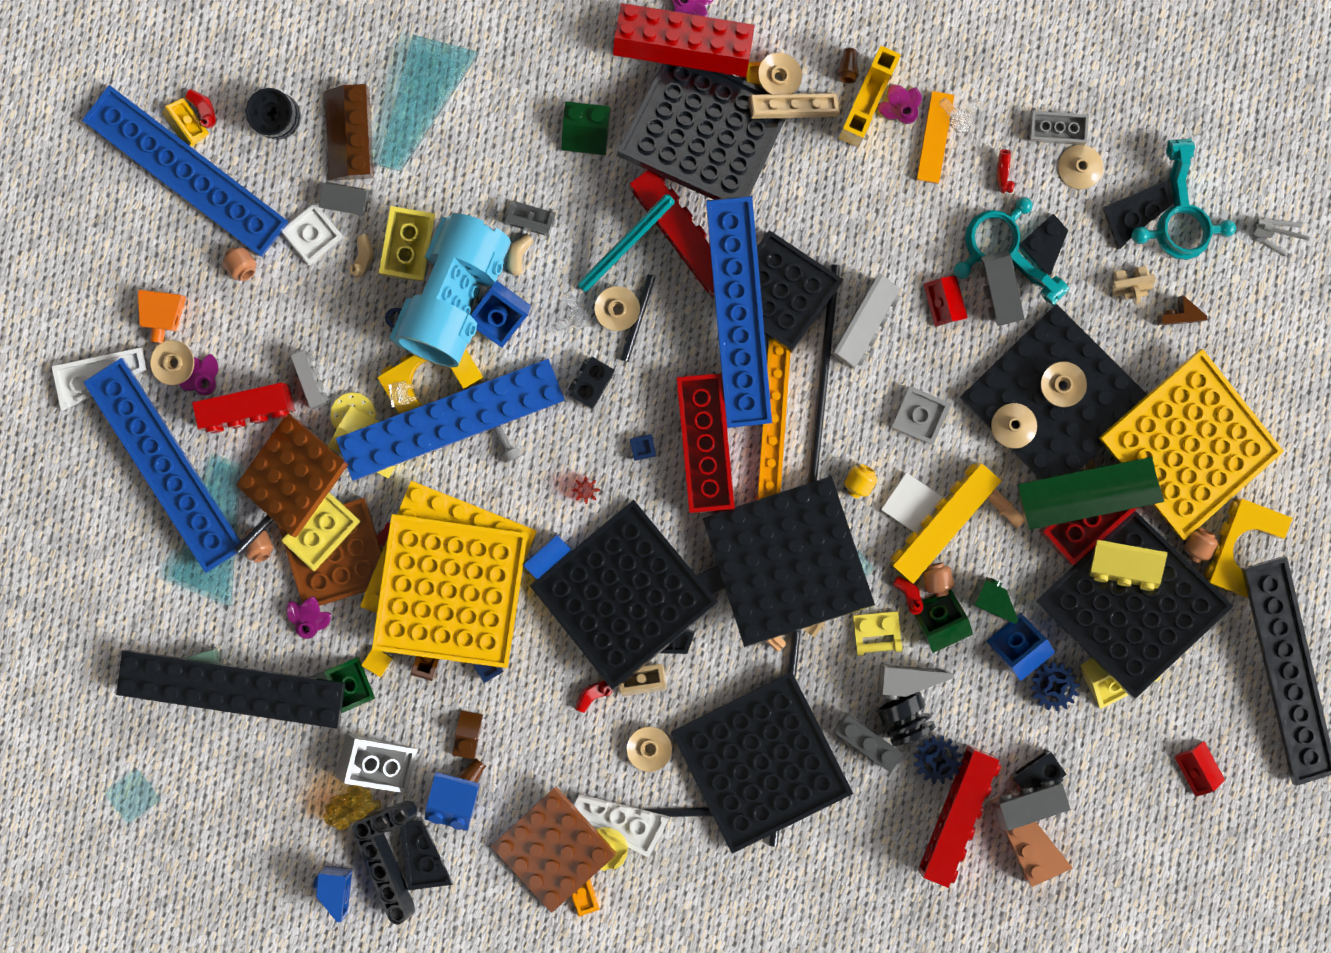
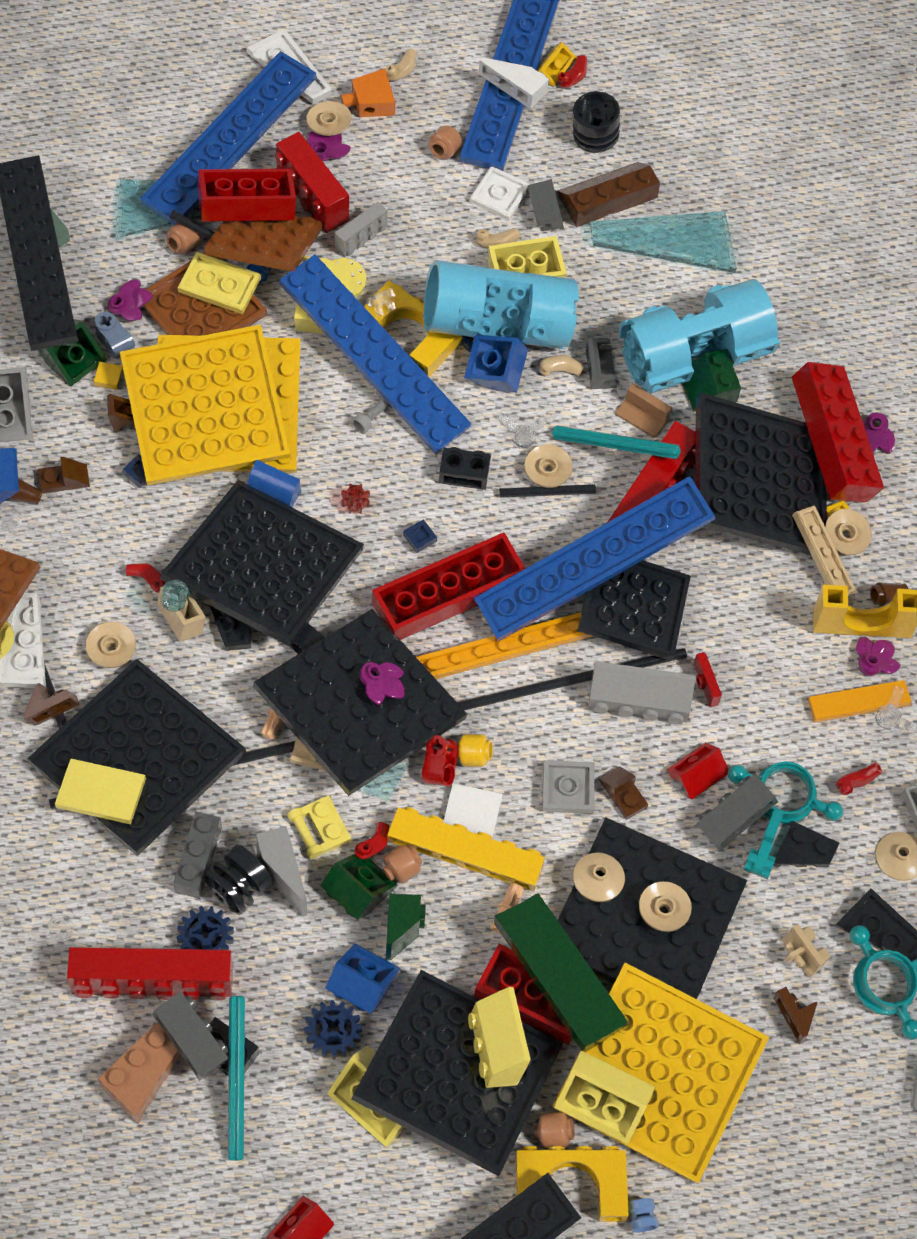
camera: 65 degrees right, 25 degrees down
(137, 269) = (403, 68): none -> tan arm
(200, 169) = (516, 80): none -> white slope
(245, 476) = (246, 194): none -> red brick
(342, 643) = (112, 334): none -> sand blue piece
(544, 79) = (662, 346): none -> medium azure cylinder
(593, 201) = (644, 411): none -> medium nougat panel
(637, 690) = (170, 600): none -> clear light blue wheel
(686, 823) = (44, 706): none -> reddish brown slope
(786, 536) = (384, 683): none -> magenta plate
(788, 805) = (100, 791): none -> light yellow tile
(863, 513) = (441, 763): none -> red piece
(869, 259) = (706, 679): none -> red plate
(940, 371) = (622, 790): none -> reddish brown slope
(1070, 778) = (236, 1078): none -> teal axle
(1198, 497) = (604, 1097): none -> light yellow slope
(1291, 504) = (642, 1215): none -> medium blue wheel

